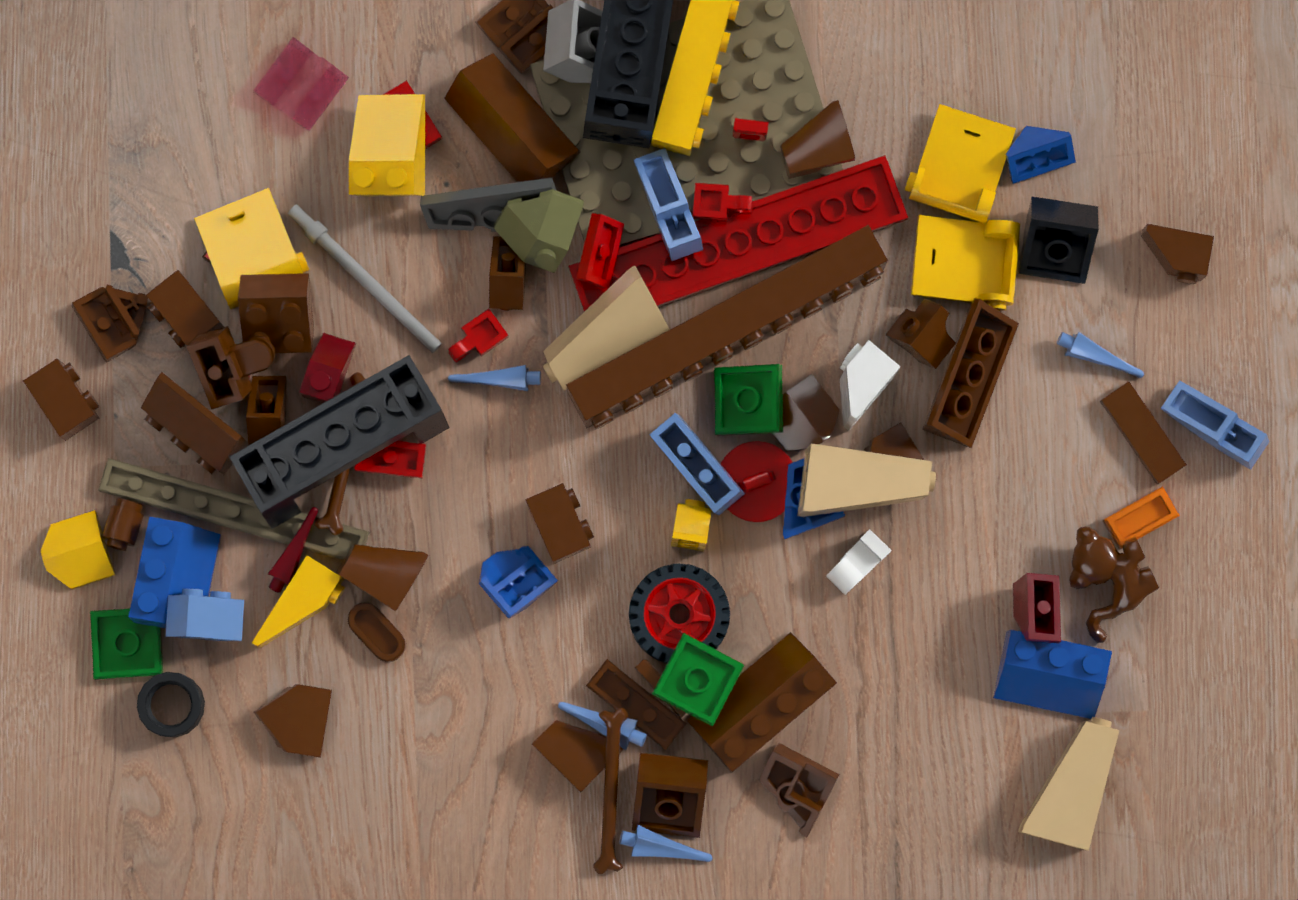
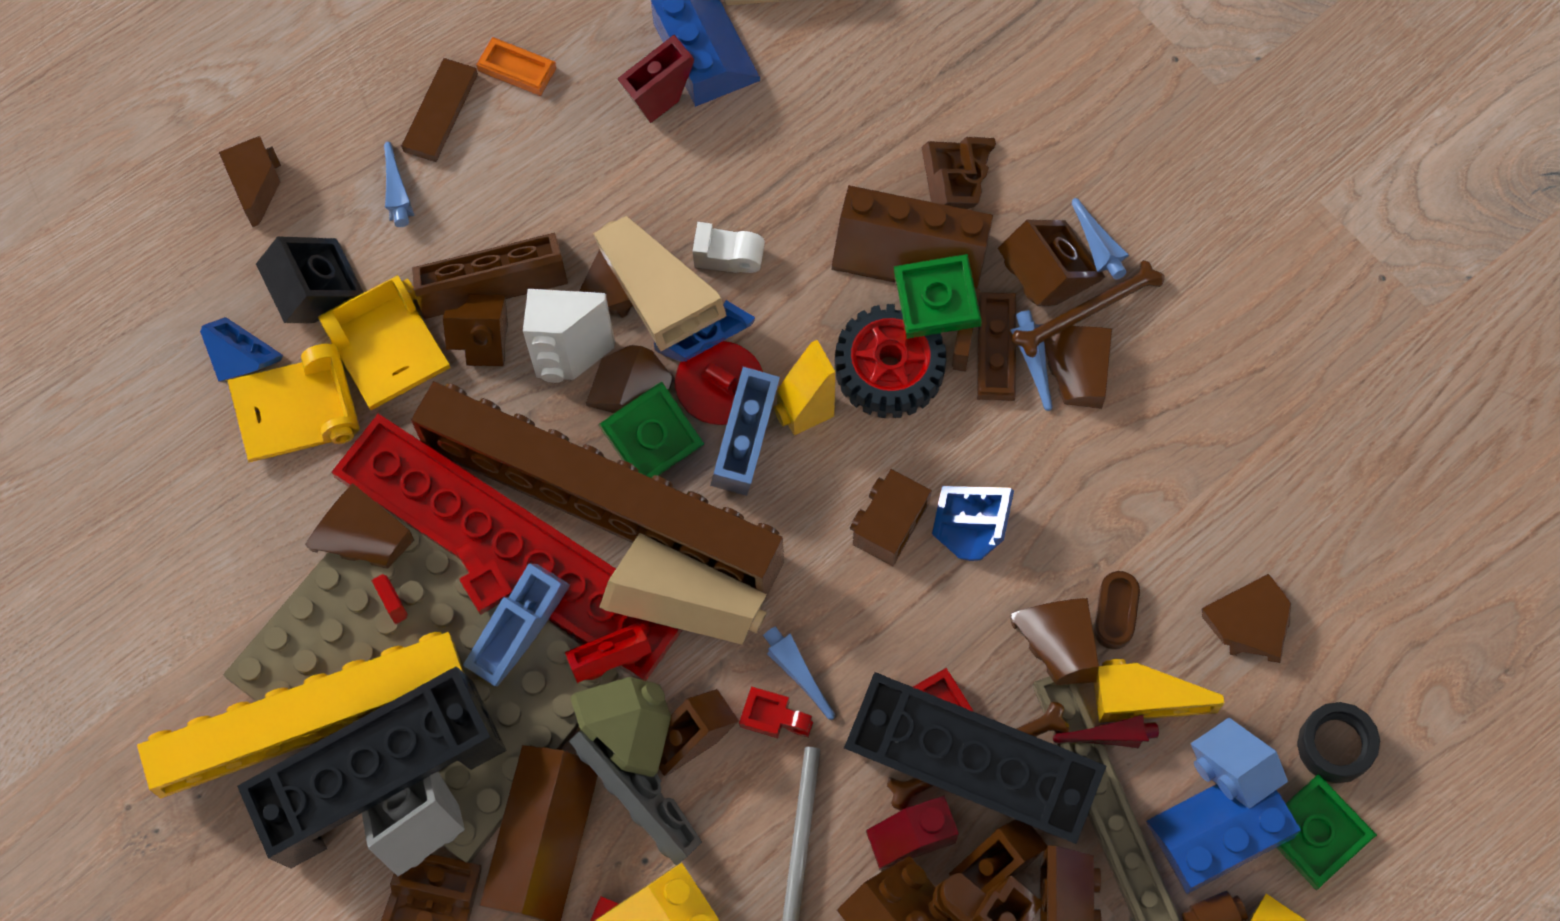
camera: 120 degrees left, 15 degrees down
(1097, 562) = (580, 66): reddish brown animal -> none
(1216, 424) = (391, 56): medium blue slope -> none

